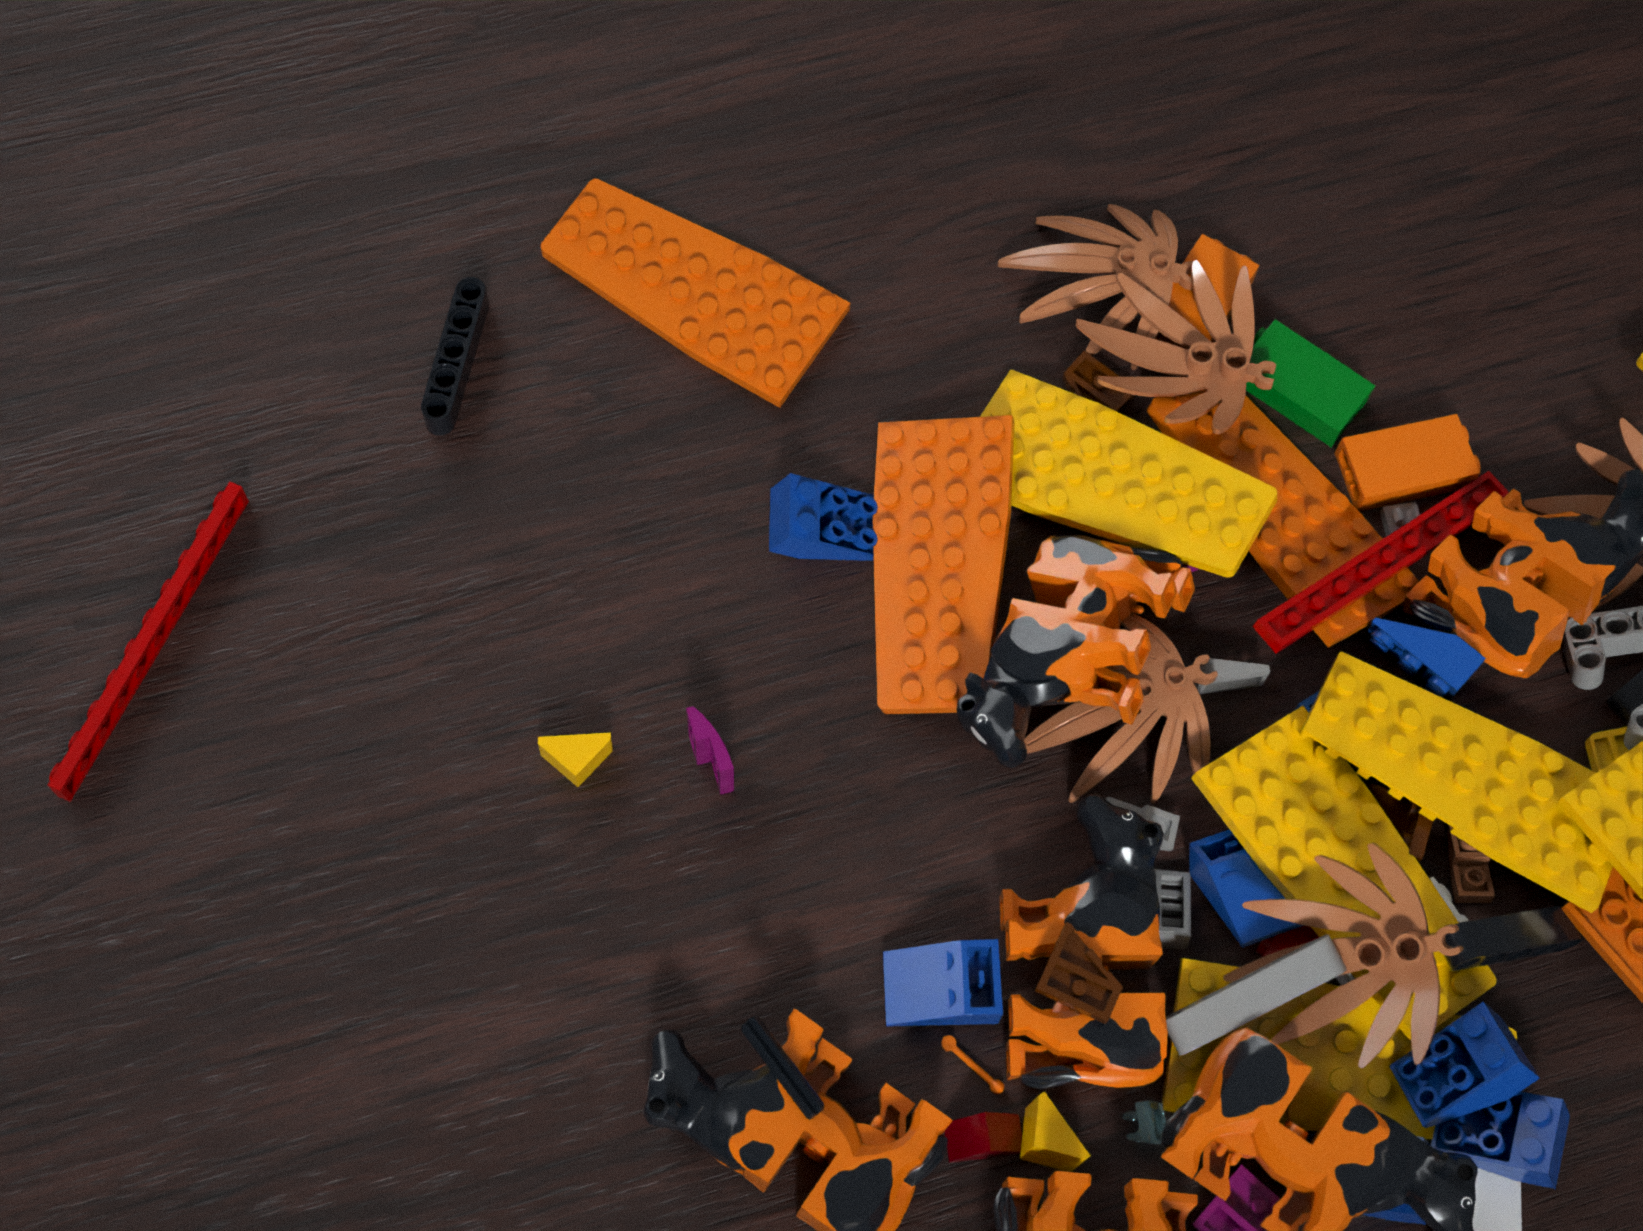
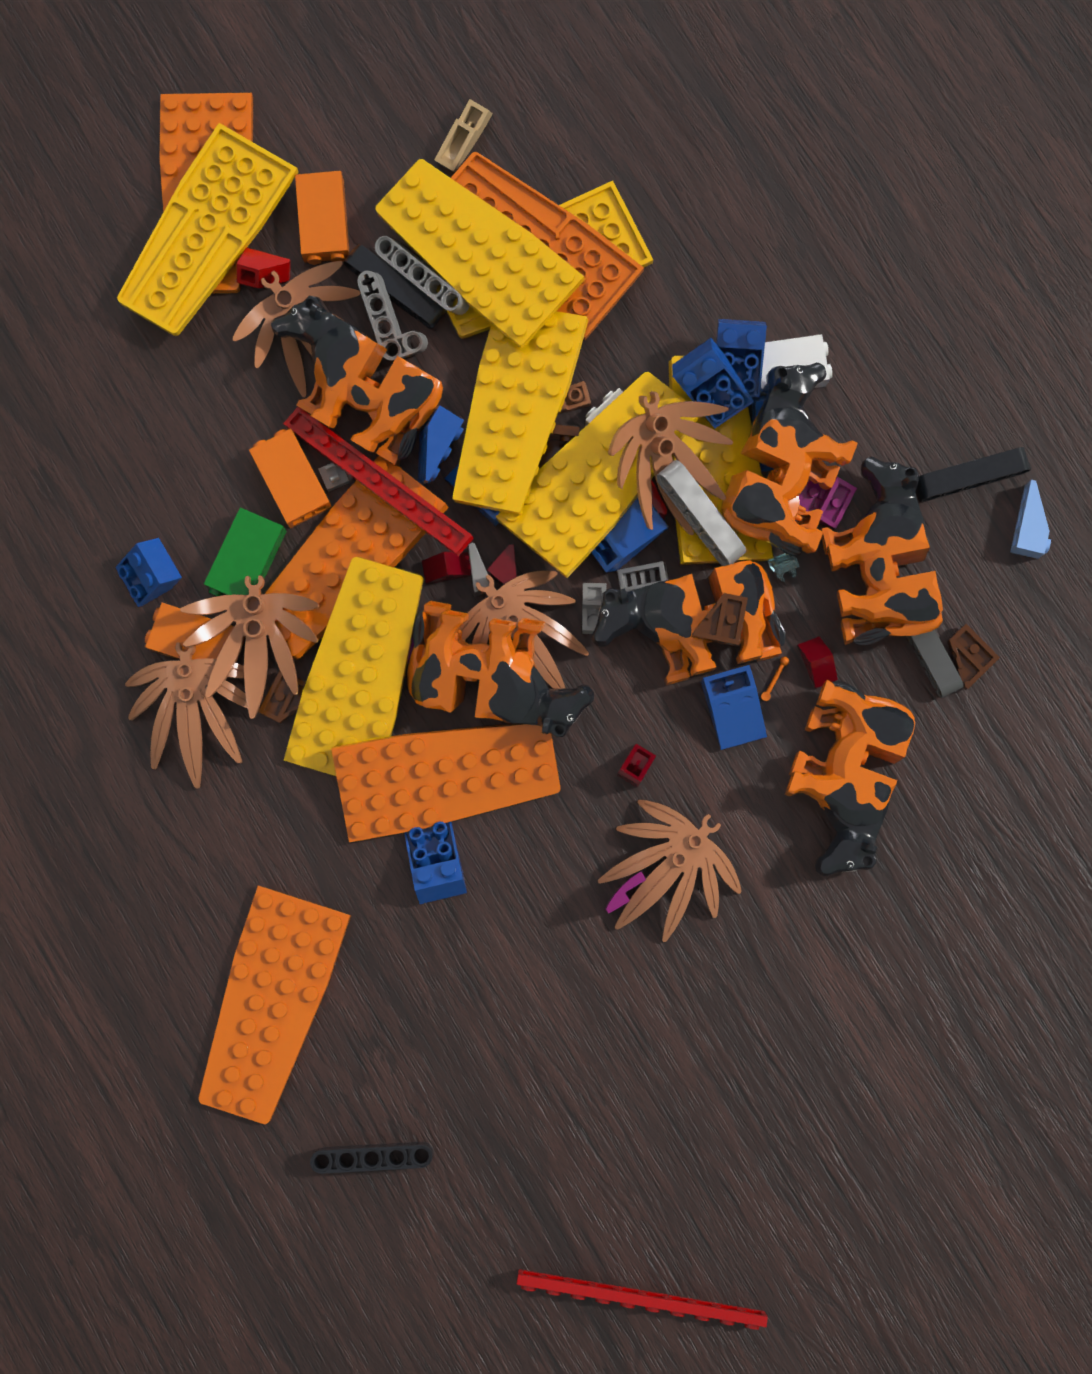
camera: 100 degrees left, 15 degrees up
(576, 754) = (647, 982): yellow slope -> none
(743, 844) = (684, 853): none -> nougat plant
(782, 1067) = (828, 788): black axle -> none
(889, 820) = (636, 765): none -> dark red slope
(1049, 1138) = (809, 623): yellow slope -> none
(1228, 713) = (504, 566): none -> dark red slope
(1237, 636) = (446, 567): none -> dark red slope
(1305, 264) = (148, 571): none -> blue slope
(1511, 937) = (617, 367): black beam -> none

